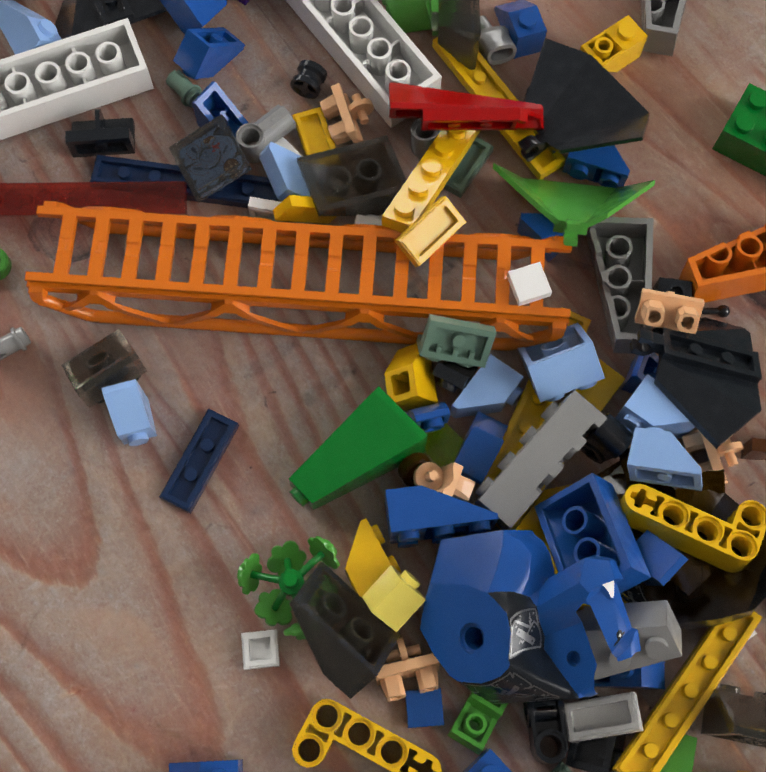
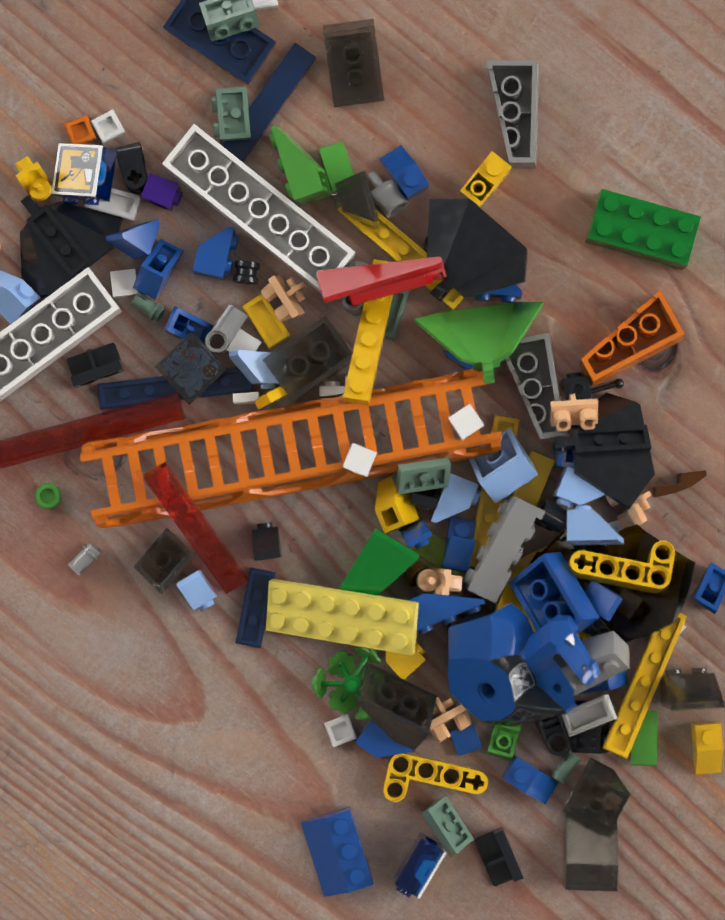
camera: 15 degrees left, 15 degrees up
(151, 329) = (195, 527): none -> clear red plate
(162, 58) = (123, 282): none -> white tile
(236, 382) = (266, 542): none -> black slope
(278, 51) = (214, 254): none -> blue slope
(306, 678) = (377, 743): none -> blue slope
(307, 493) = (342, 616): none -> light yellow plate
(381, 295) = (359, 460): none -> white tile
(394, 597) = (426, 674): light yellow brick -> none
(430, 231) = (382, 400): yellow tile -> none

